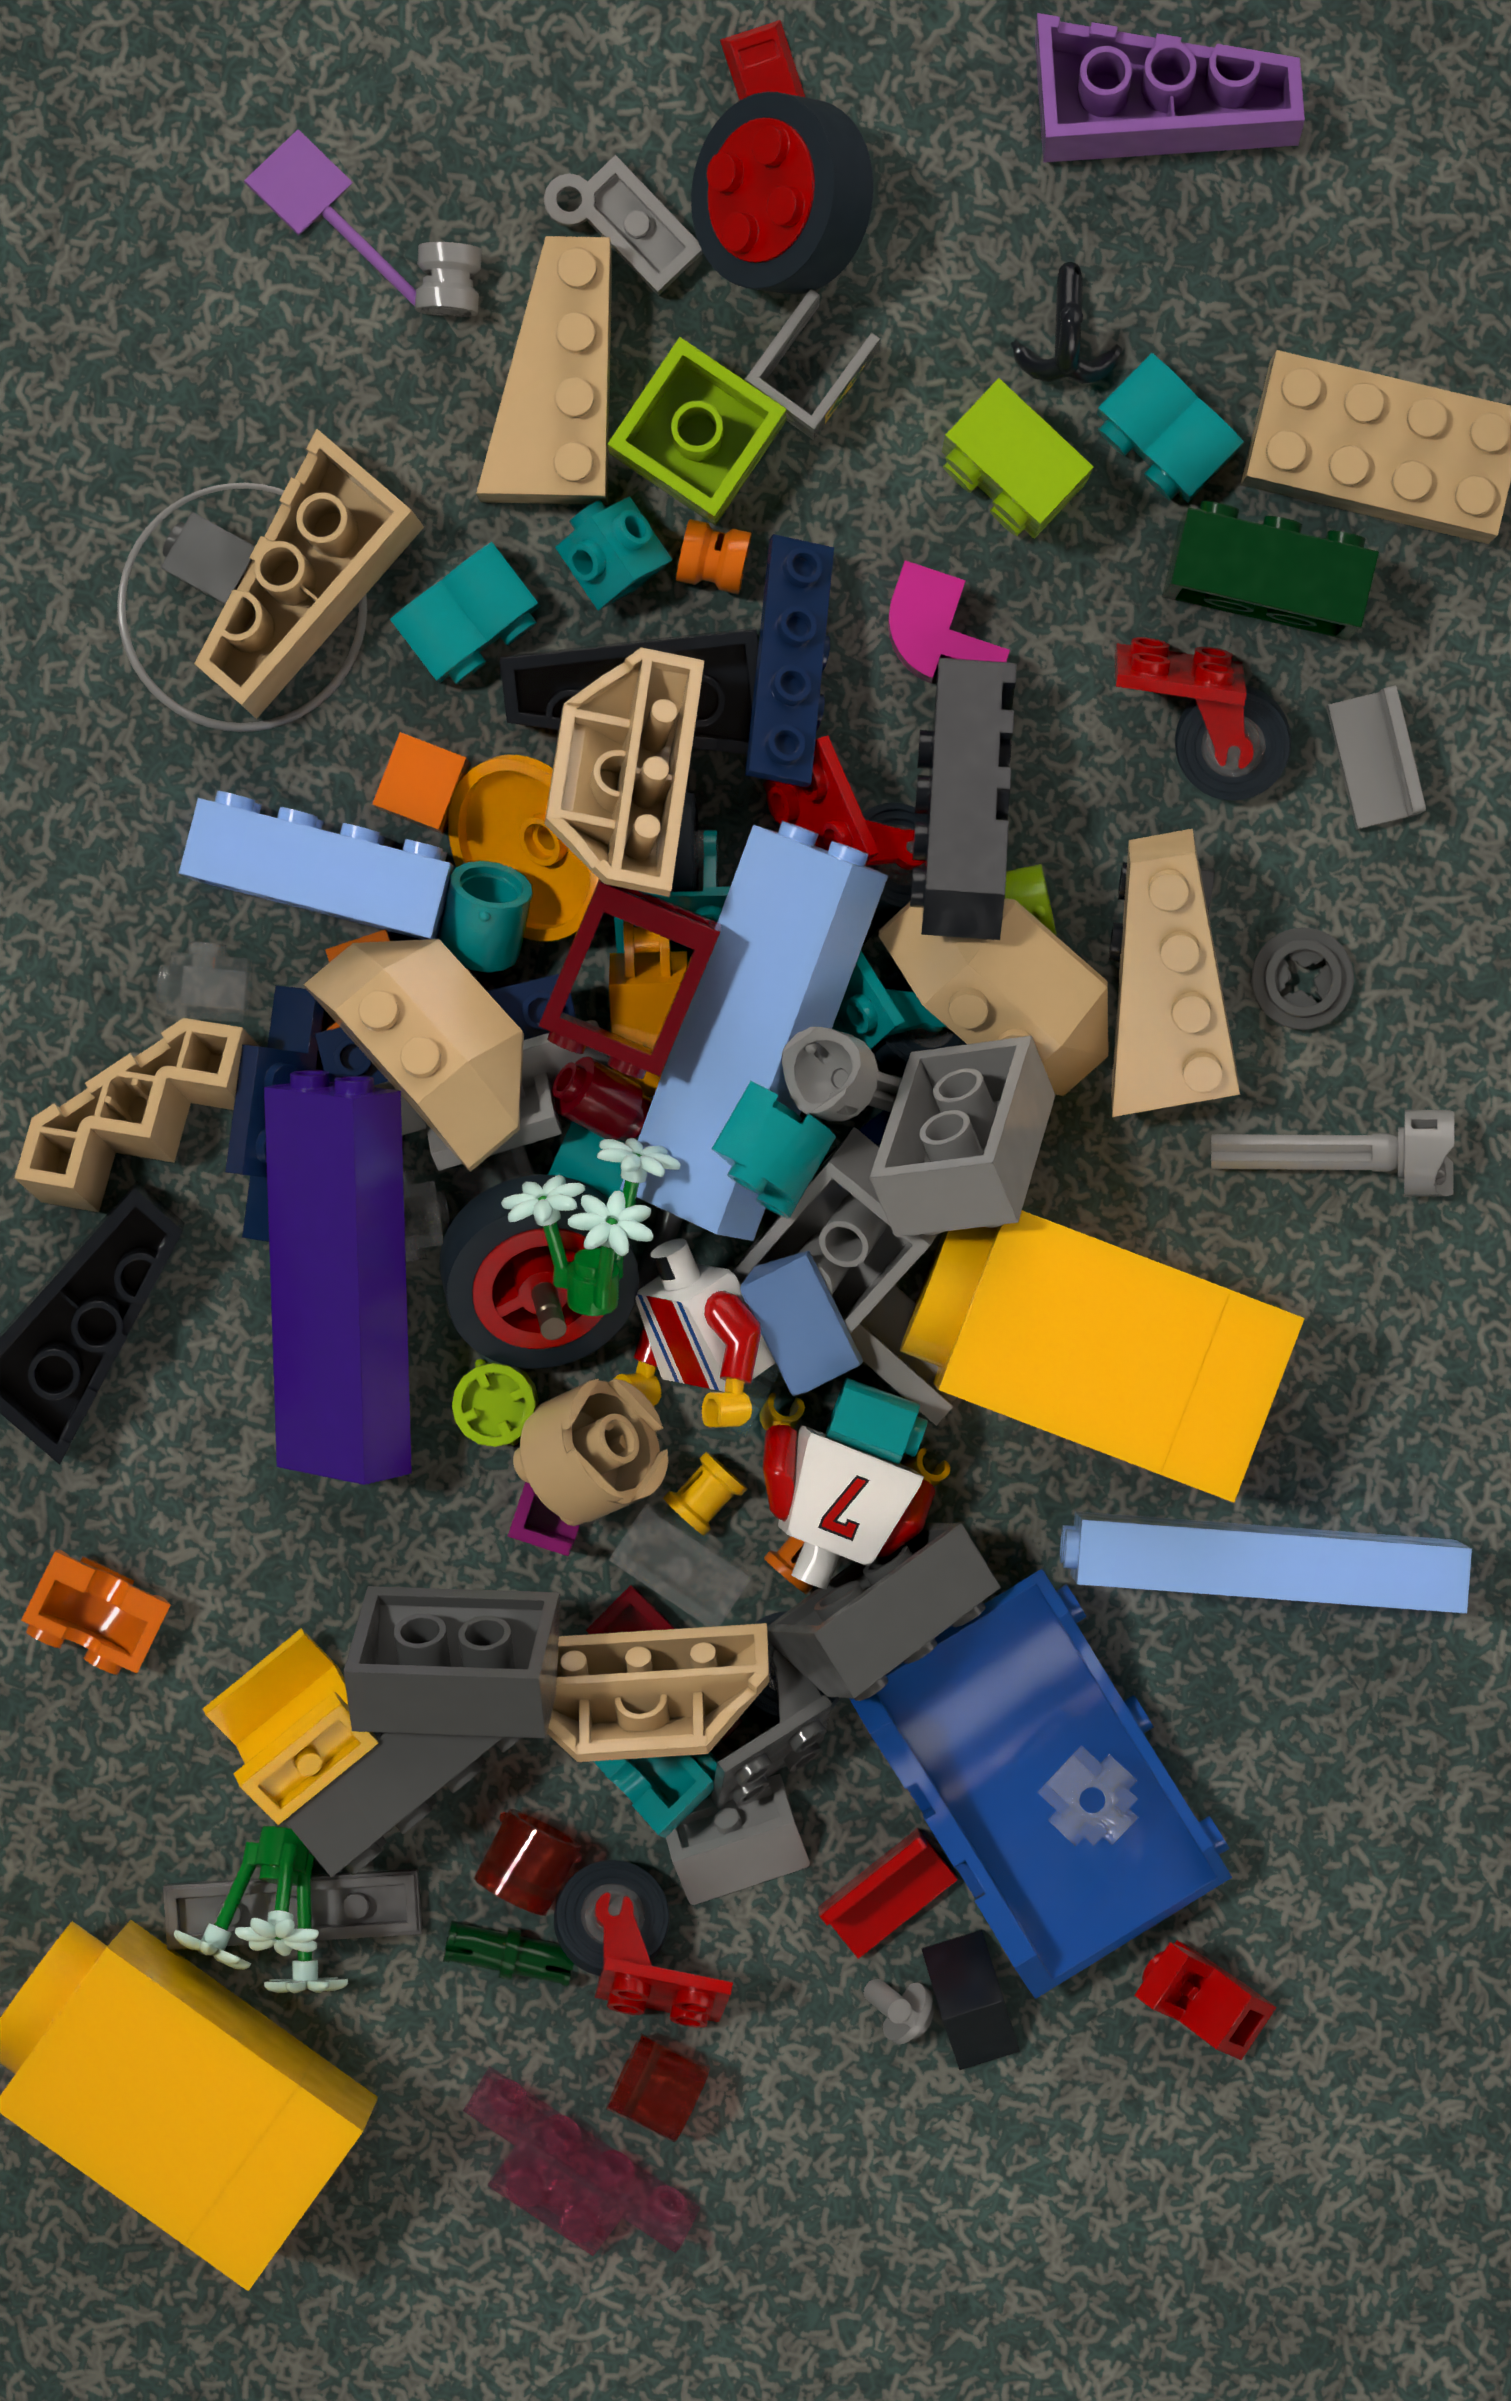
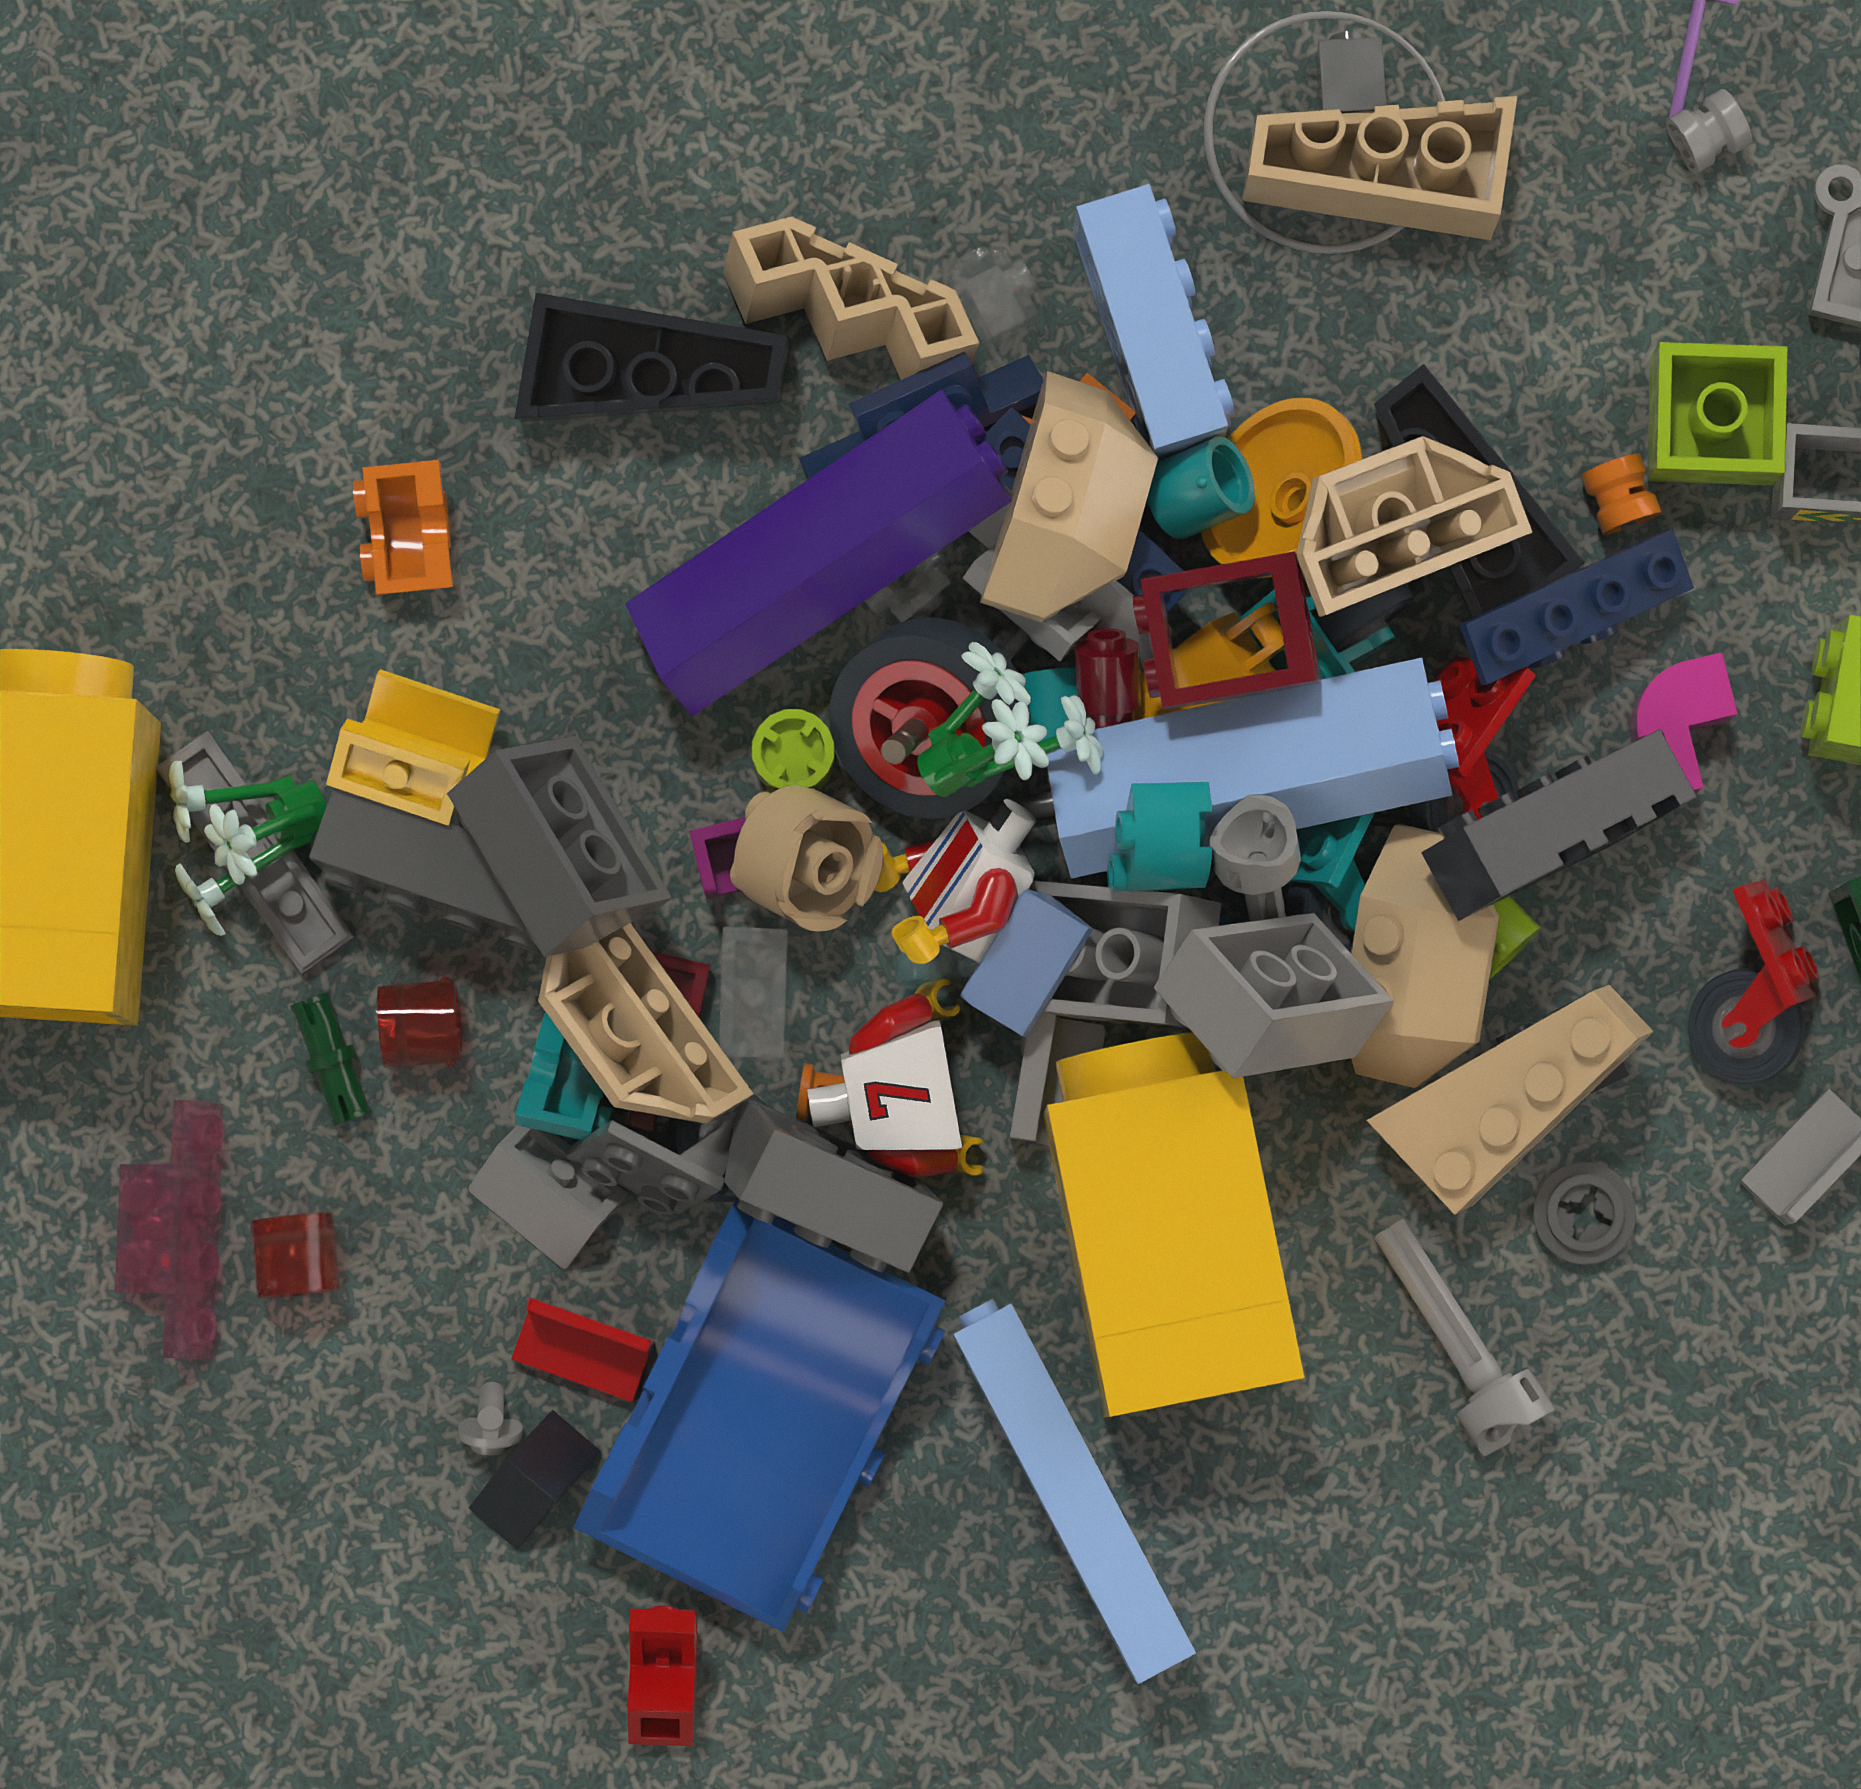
camera: 55 degrees right, 5 degrees down
(420, 782) = (1275, 365): orange piece -> none
(466, 615) = (1440, 319): teal brick -> none
(557, 392) = (1680, 274): tan wedge -> none
(612, 551) = (1571, 406): teal brick -> none
(613, 1926) = (411, 1132): plate -> none
(705, 1493) = (827, 979): yellow bush -> none
(876, 1422) = (982, 1081): teal brick -> none
(1076, 1776) = (781, 1444): clear brick -> none

